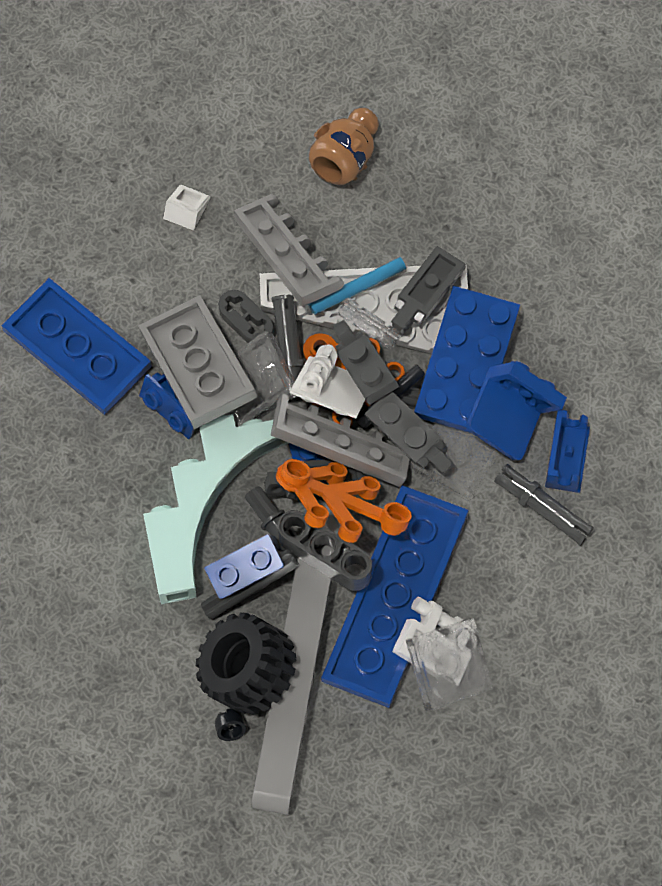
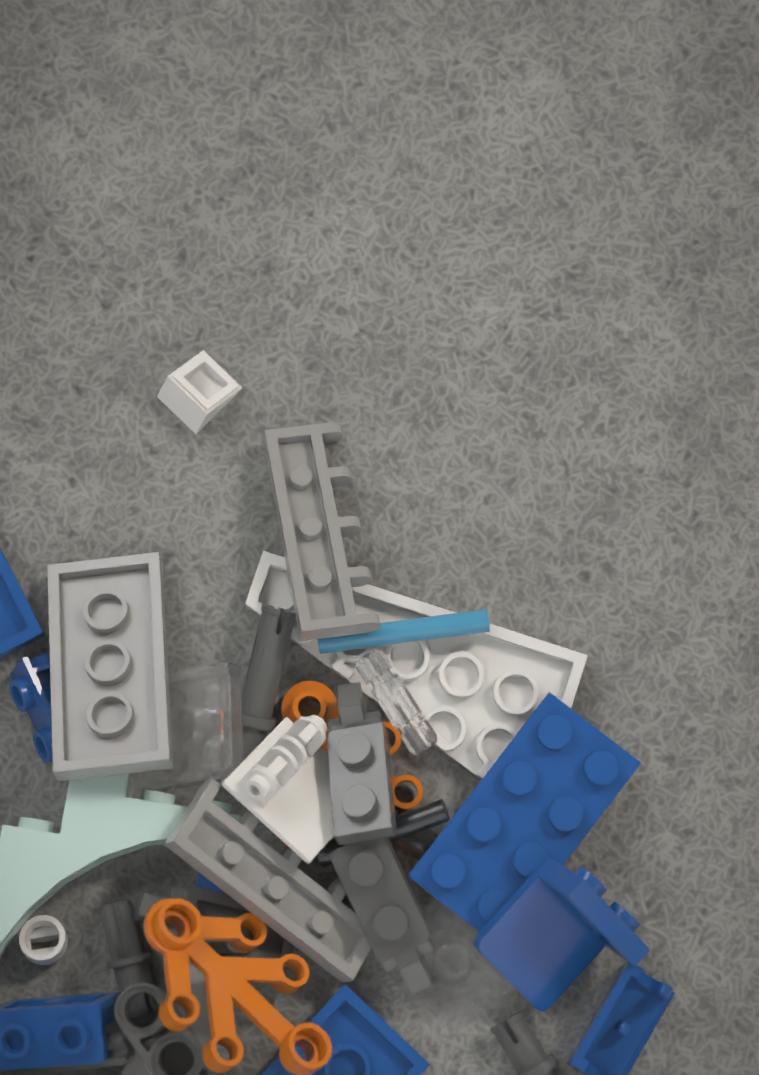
camera: 20 degrees right, 10 degrees up
(216, 522) = (43, 929): none -> white hinge
(250, 311) = (230, 607): dark grey beam -> none
(344, 147) = (475, 388): medium nougat piece -> none
(426, 289) = (506, 680): dark grey hinge -> none

